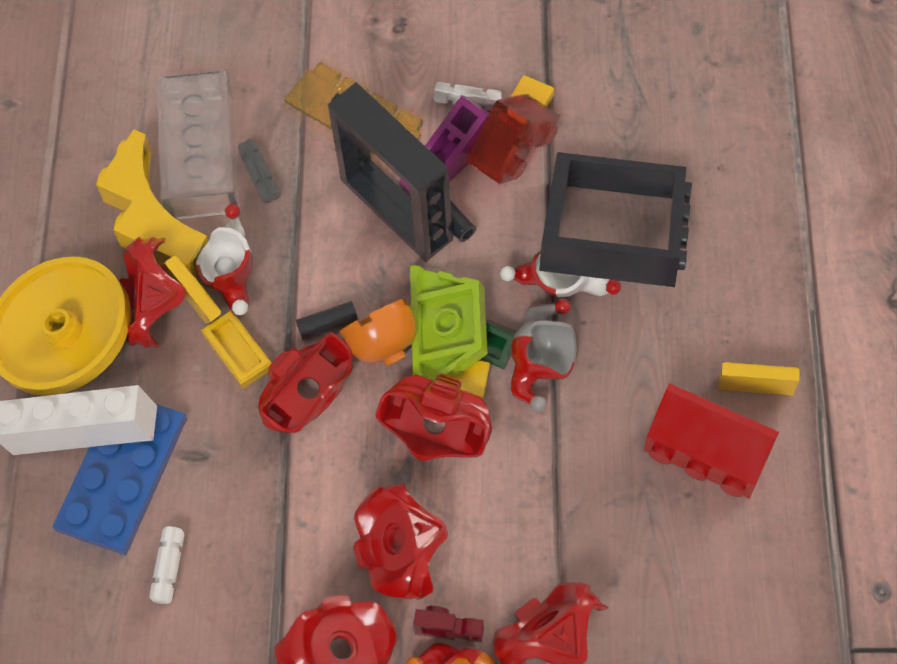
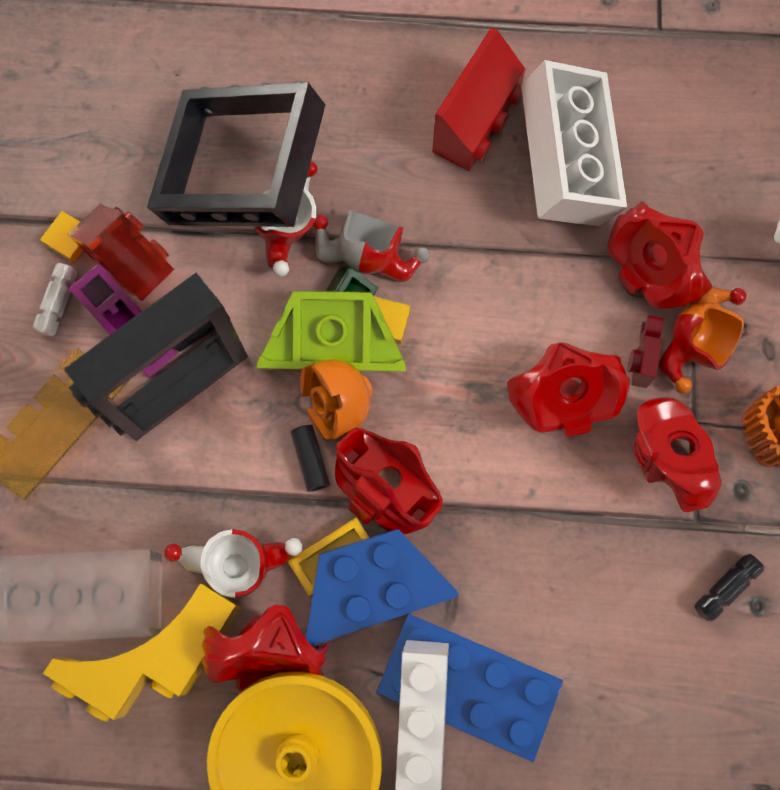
camera: 90 degrees left, 10 degrees up
(166, 565) = (577, 632): white axle -> none
(194, 291) = (275, 594): yellow tile -> none
(209, 379) = (371, 585): none -> blue wing
(258, 171) = (113, 529): dark grey axle -> none
(441, 401) = (435, 330): red piece -> none
(669, 536) = (573, 144): none -> white brick
(758, 378) = (411, 61): yellow tile -> none

